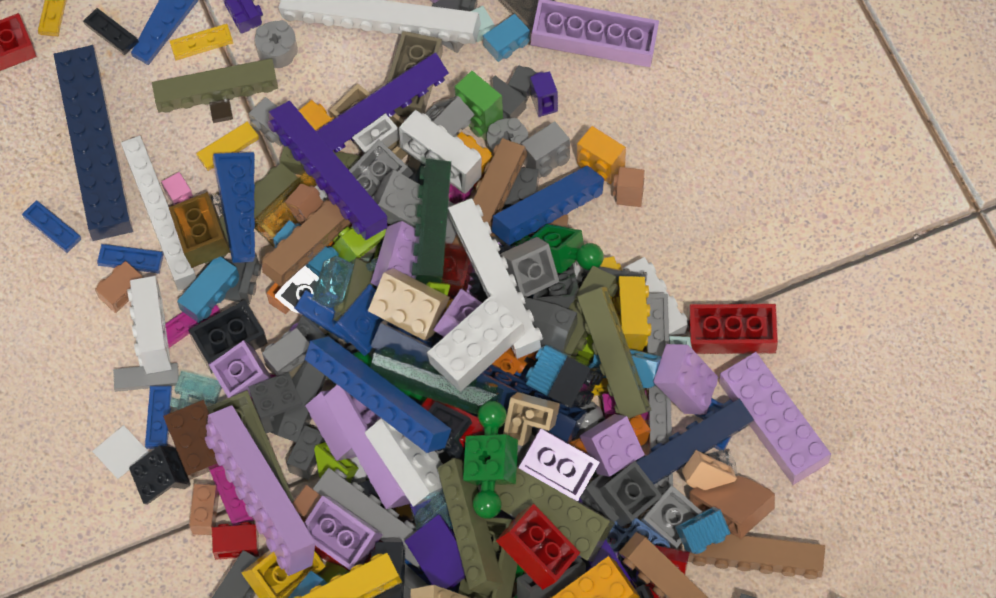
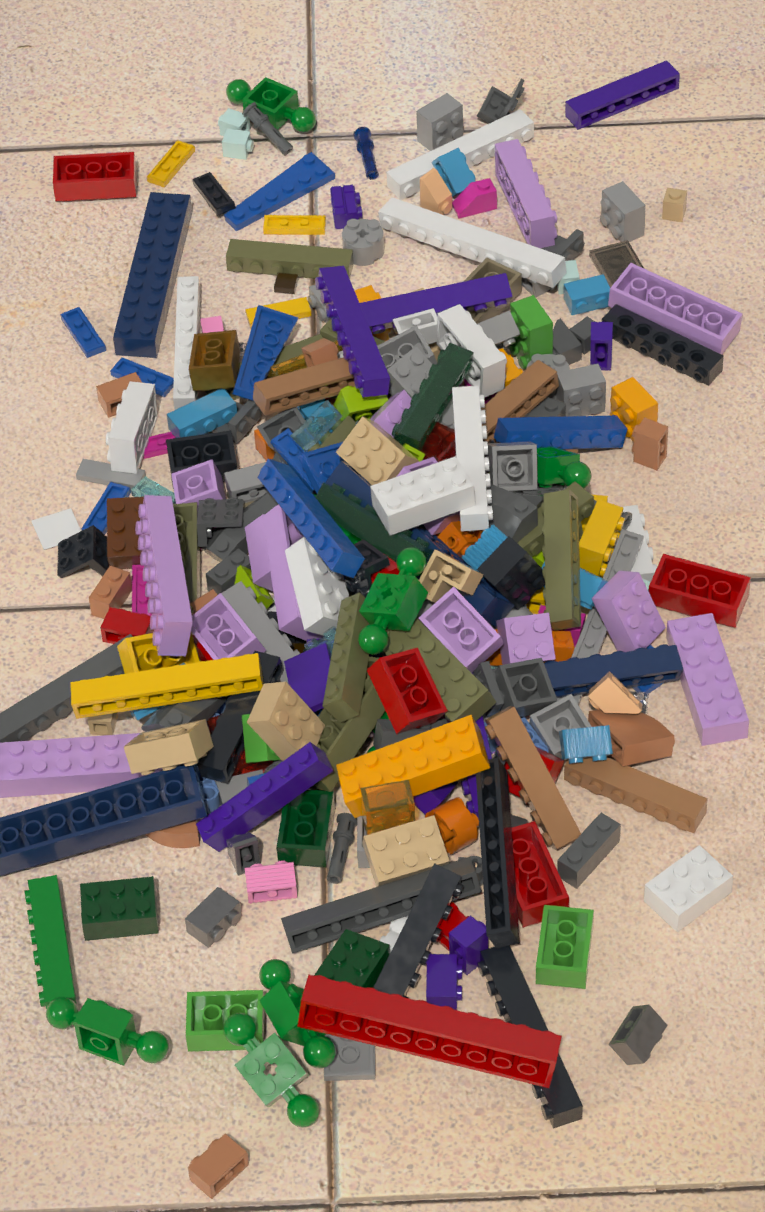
camera: 20 degrees right, 15 degrees down
(603, 66) = (664, 345): none -> black brick

